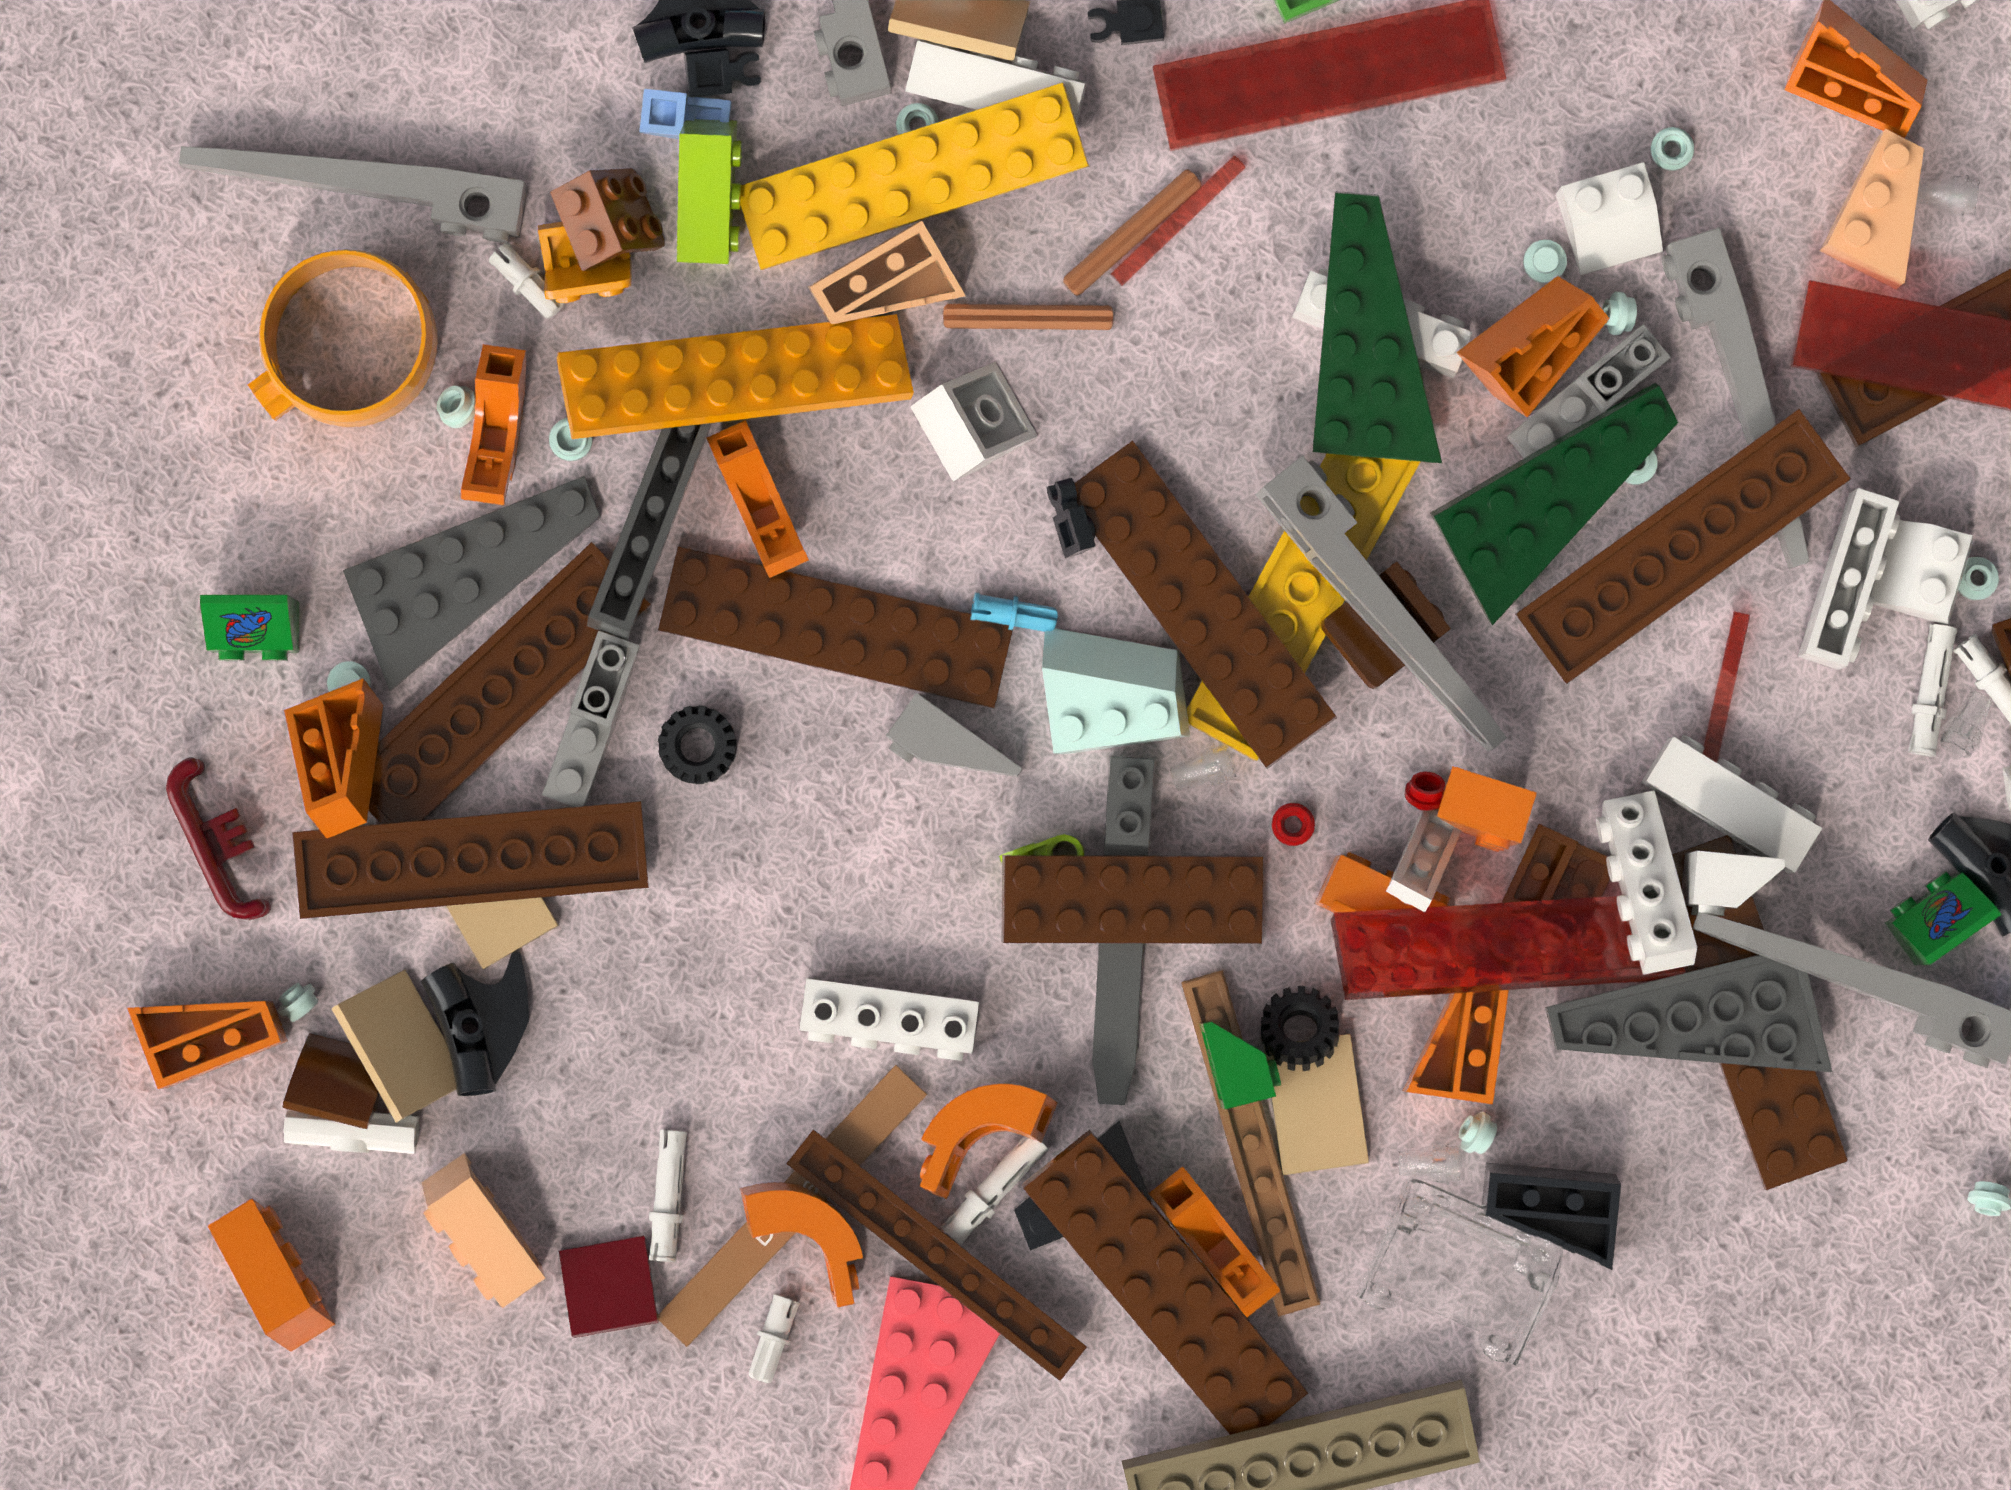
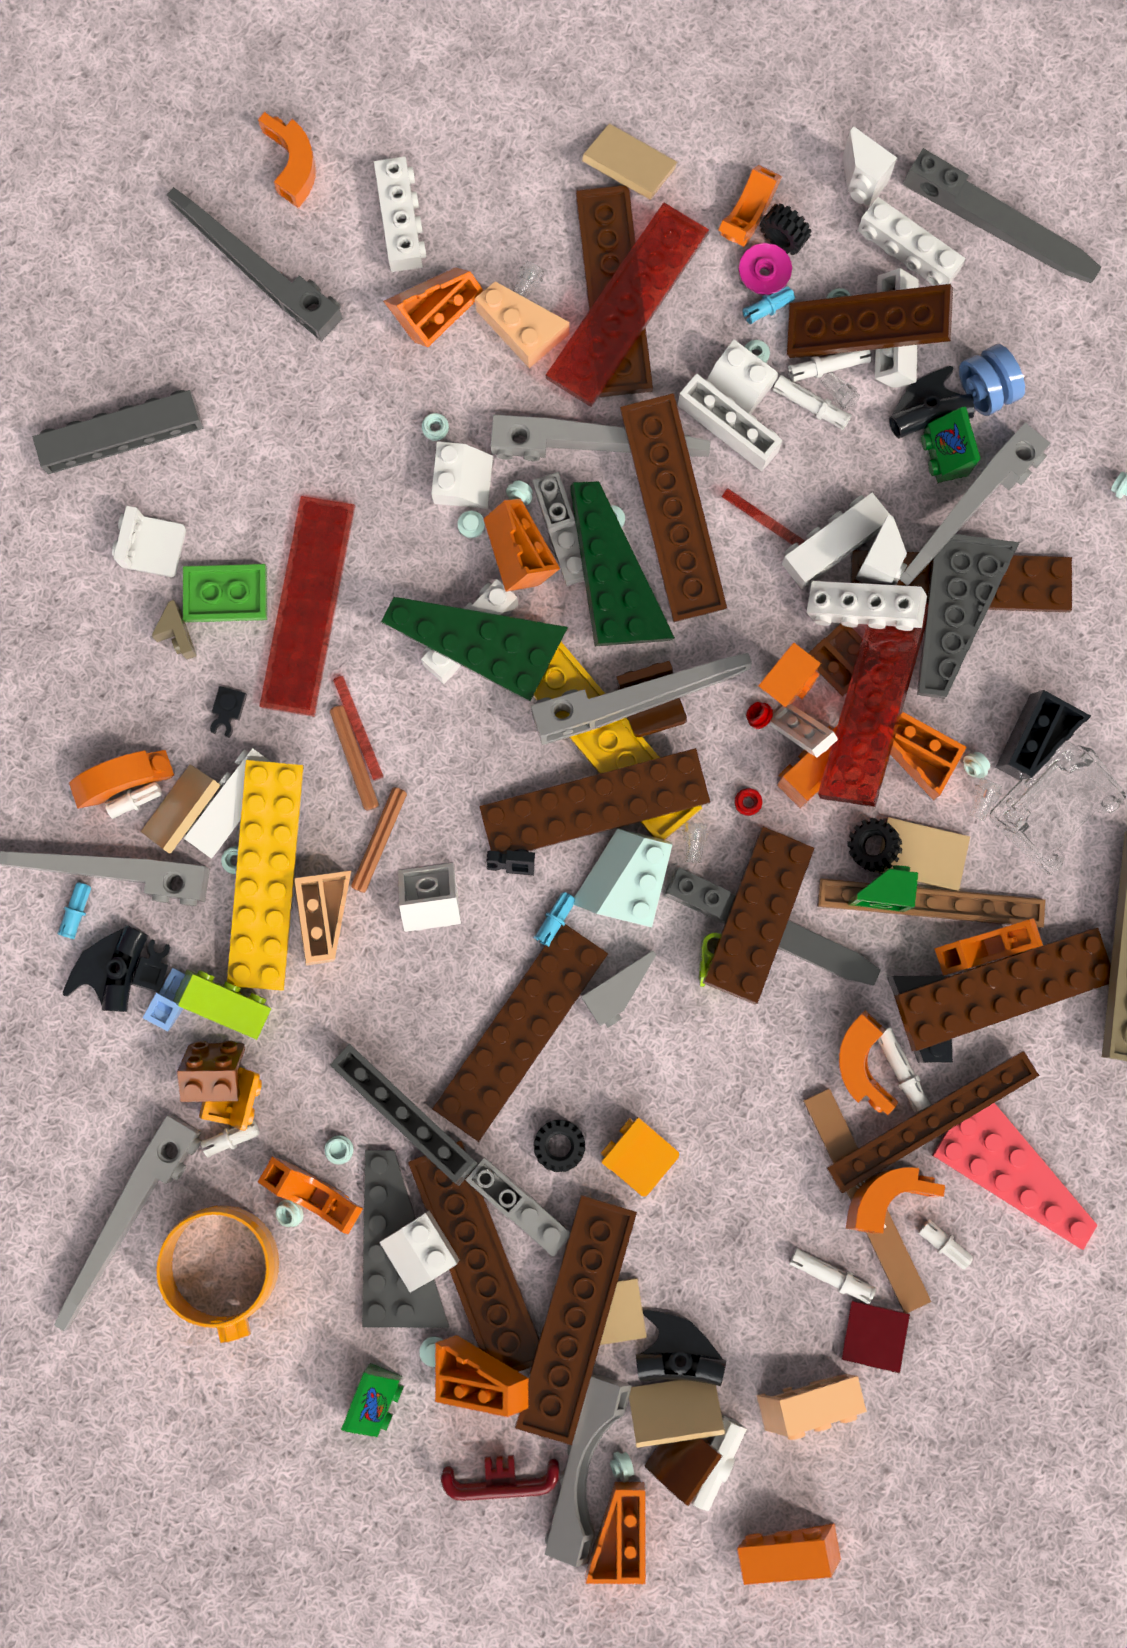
camera: 65 degrees left, 5 degrees down
(190, 963) = (571, 1530): none -> light grey arch
(476, 607) = (419, 1251): none -> white slope
(727, 862) = (639, 1156): none -> light orange bracket
(734, 376) = (341, 1034): light orange plate -> none
(757, 499) = (423, 1047): orange arch -> none
(889, 1016) = (773, 1092): white brick -> none

